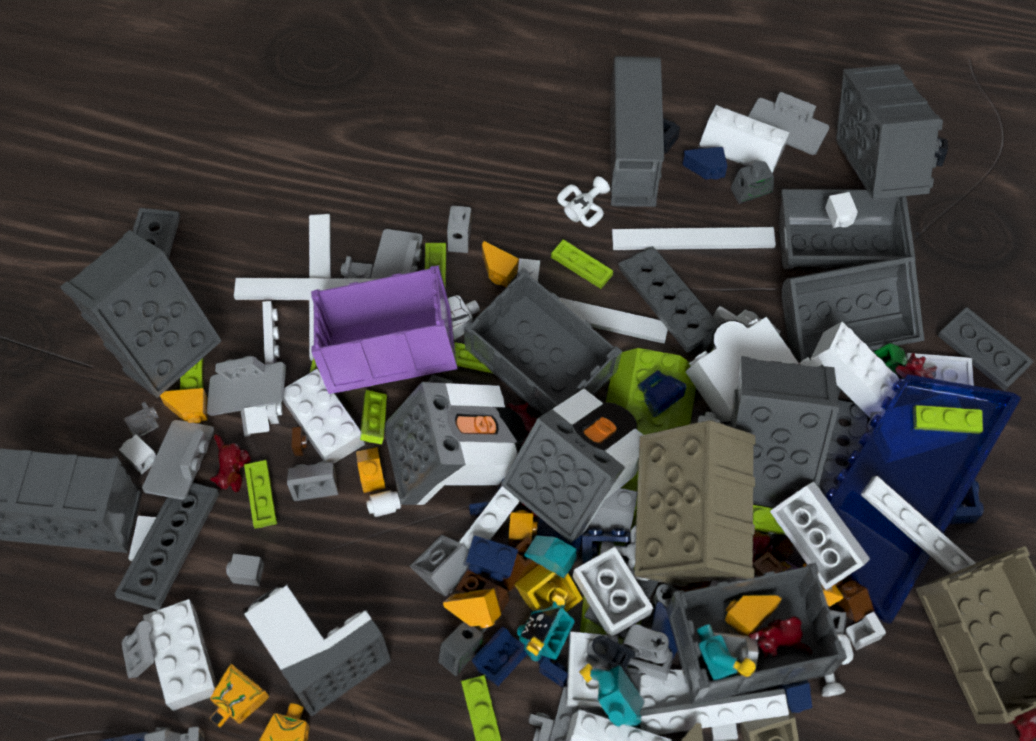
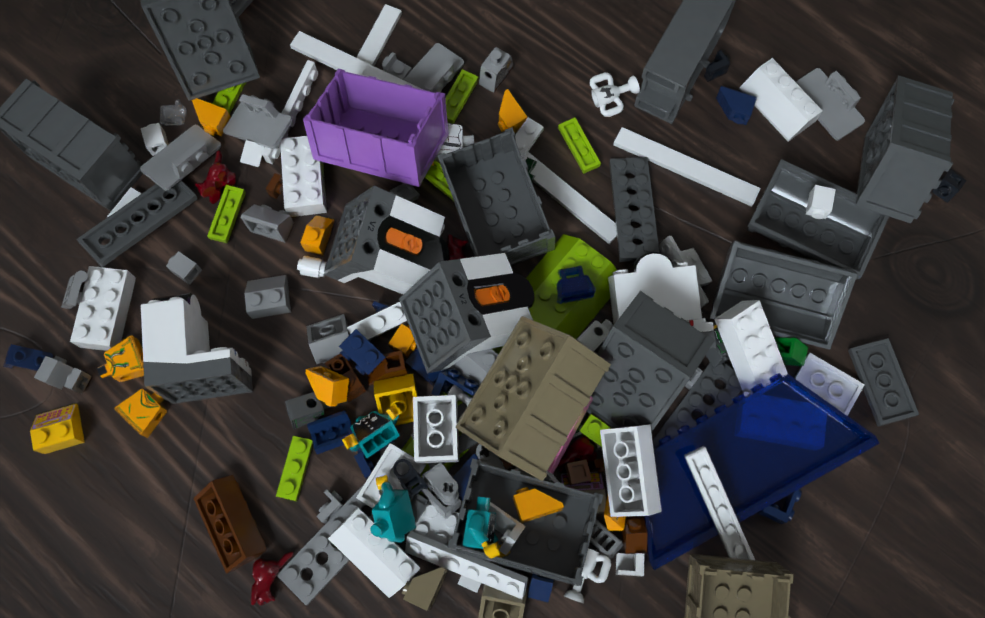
camera: 30 degrees right, 10 degrees up
(353, 555) = (267, 297): none -> light grey slope
(373, 417) = (340, 194): lime plate -> none
(552, 554) = (408, 375): teal slope -> none
(753, 182) = (765, 140): dark grey torso -> none
(782, 634) = (549, 535): dark red animal -> none
(915, 367) = (803, 373): dark red animal -> none
(947, 419) = (804, 428): lime plate -> none

